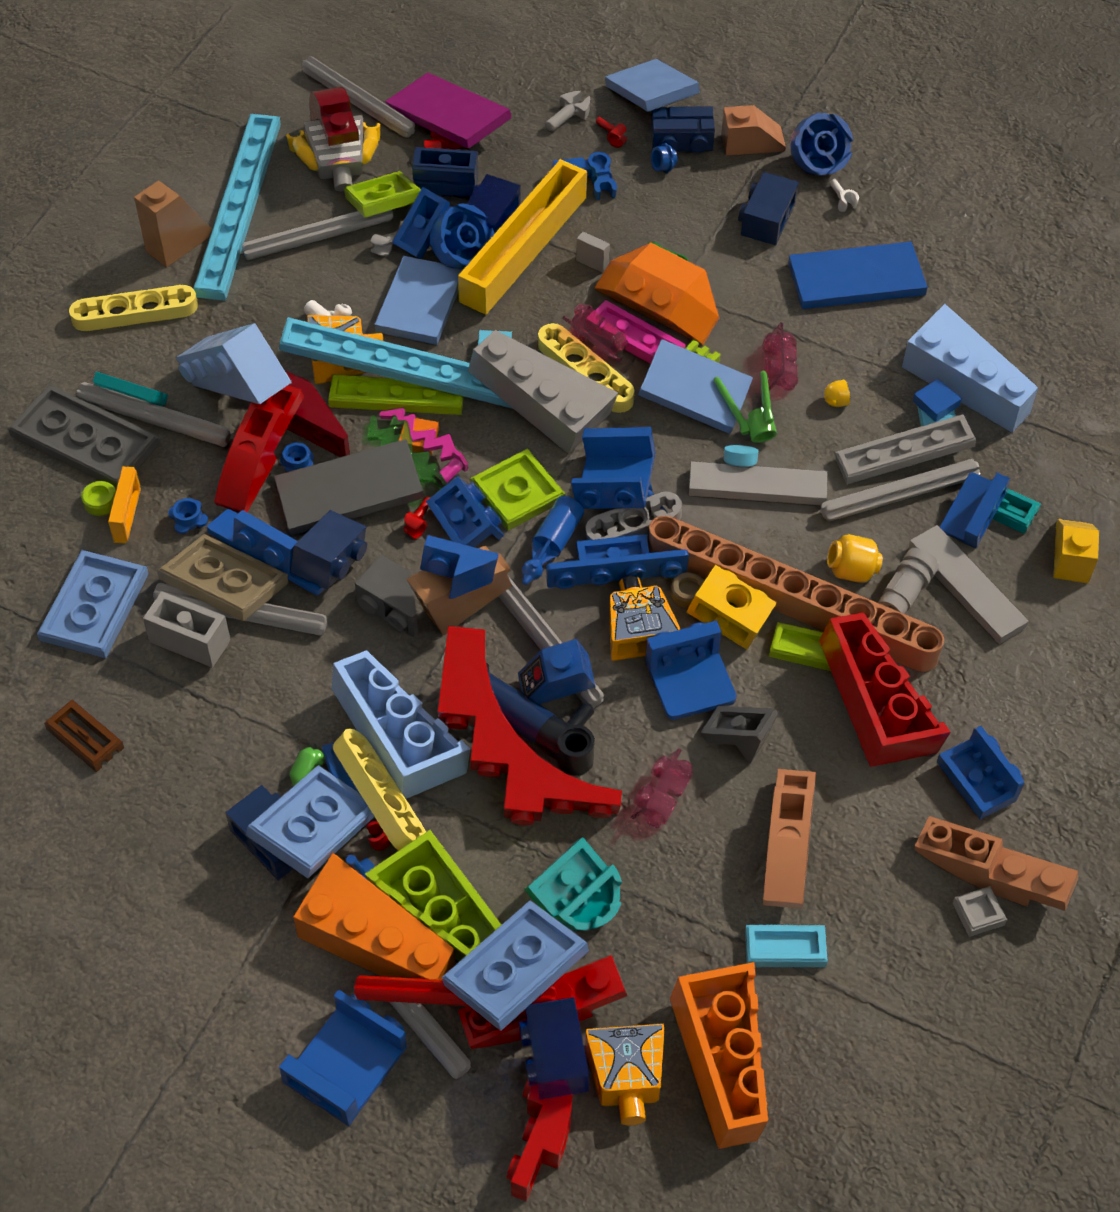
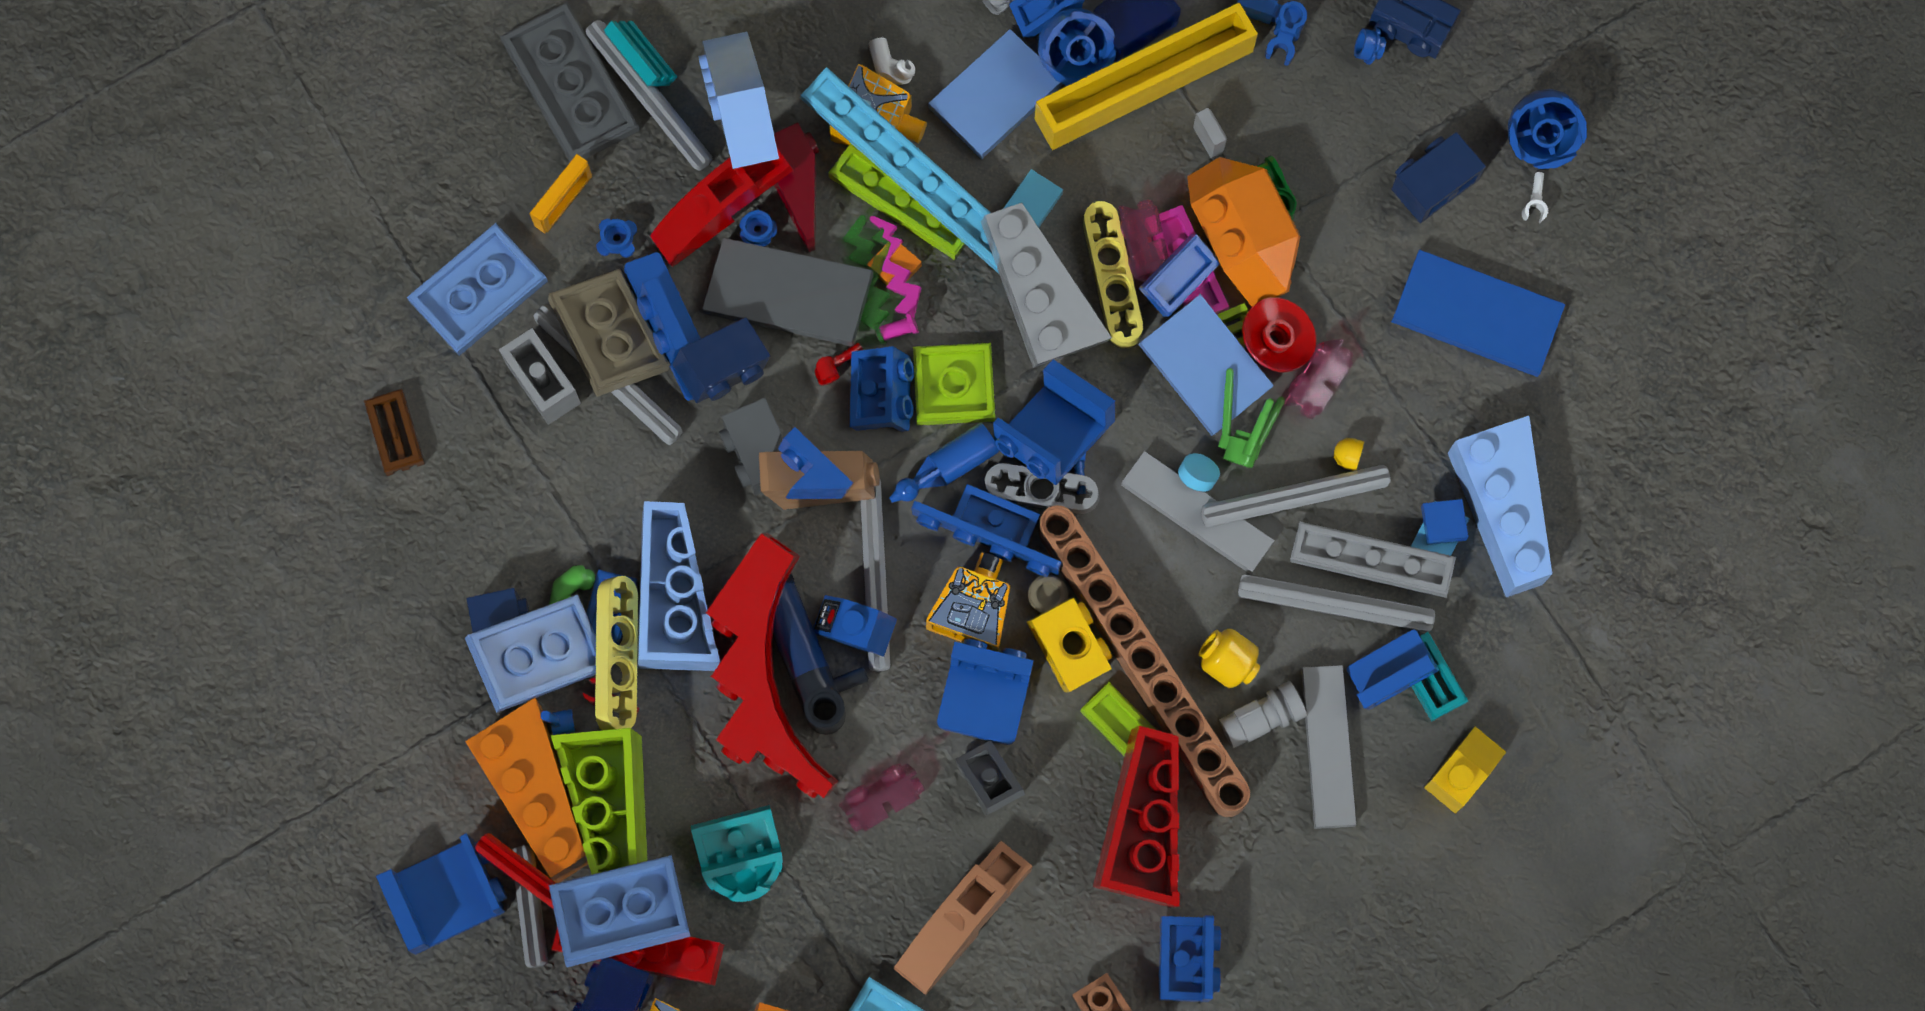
camera: 30 degrees right, 20 degrees up
(98, 498) = (544, 167): lime tile -> none
(637, 336) = (1179, 275): none -> tile
(733, 344) = (1290, 327): none -> red dish
(750, 131) = (1490, 62): nougat slope -> none
(819, 436) = (1295, 495): none -> light grey axle

